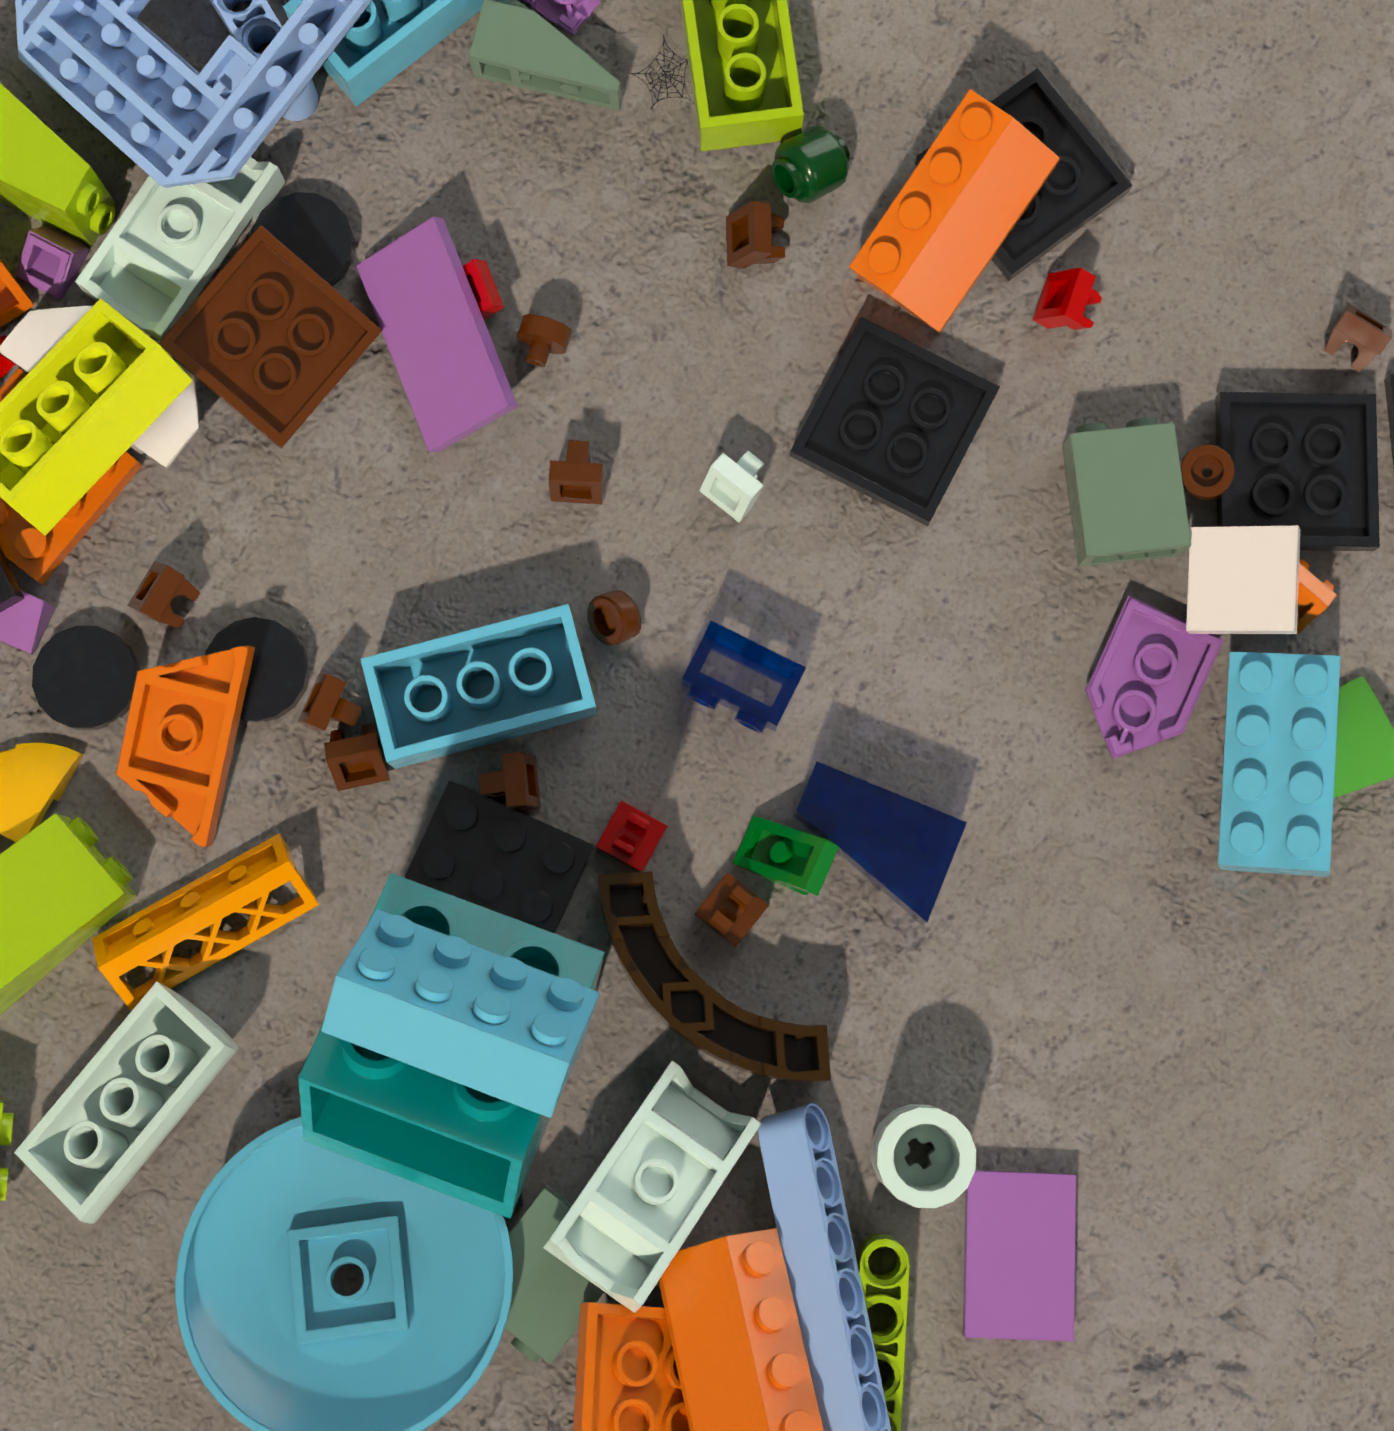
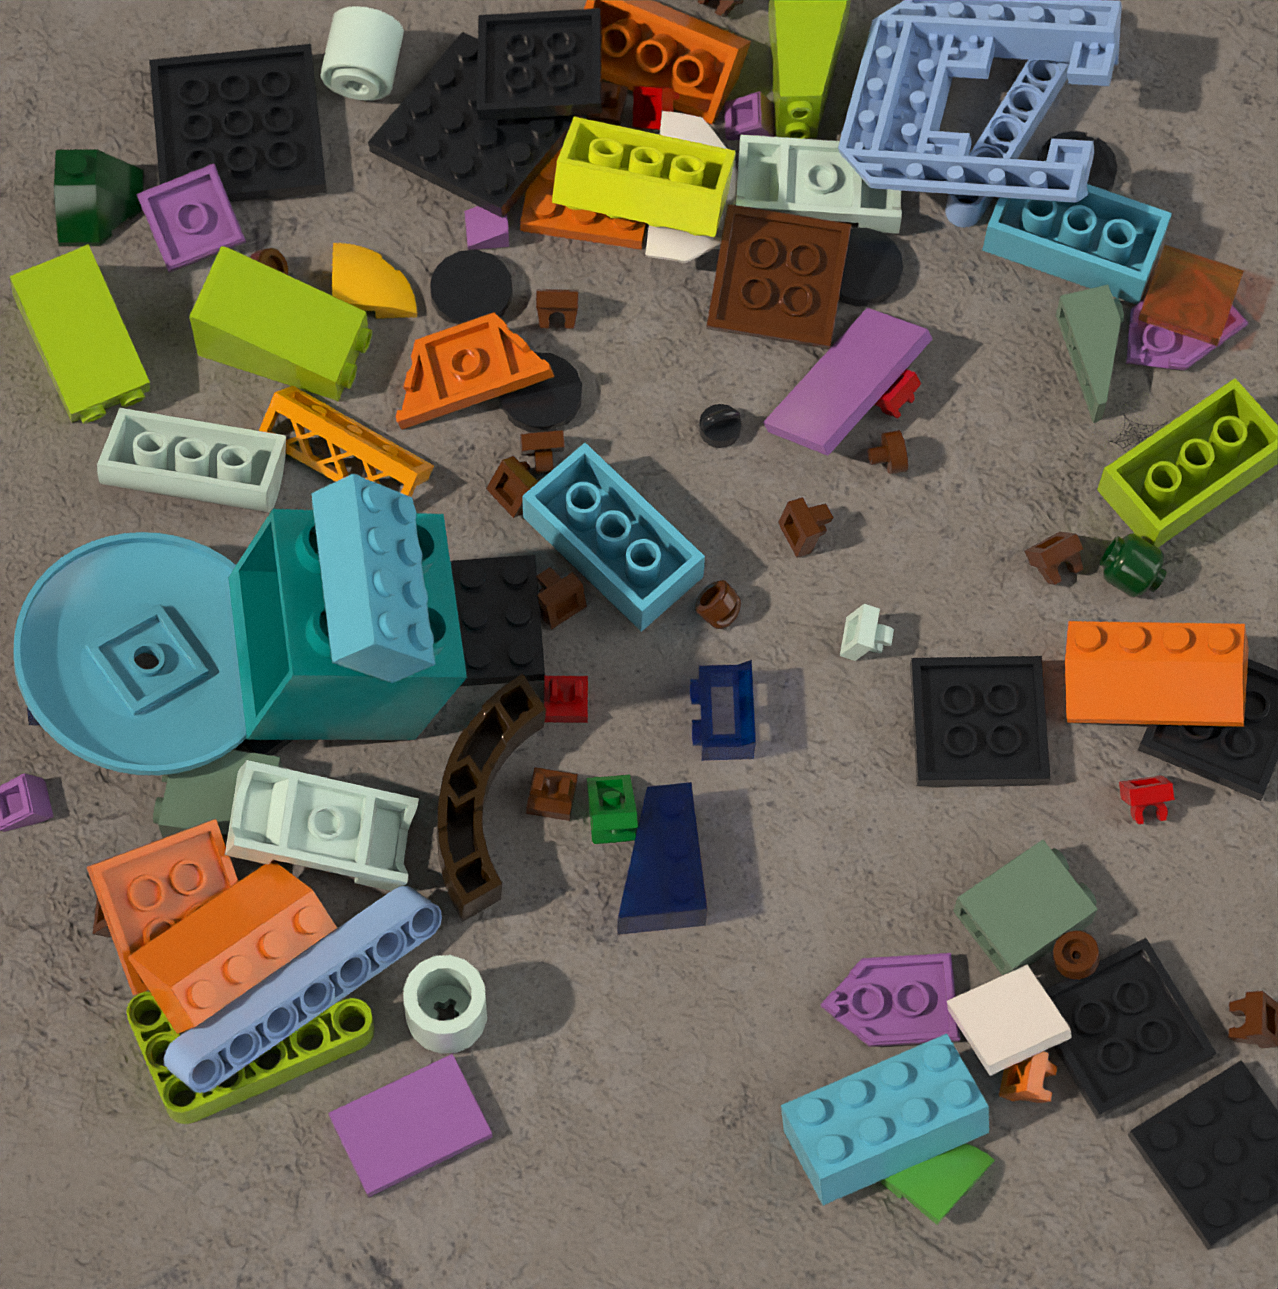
camera: 60 degrees right, 15 degrees down
(405, 499) = (720, 425): none -> black tile

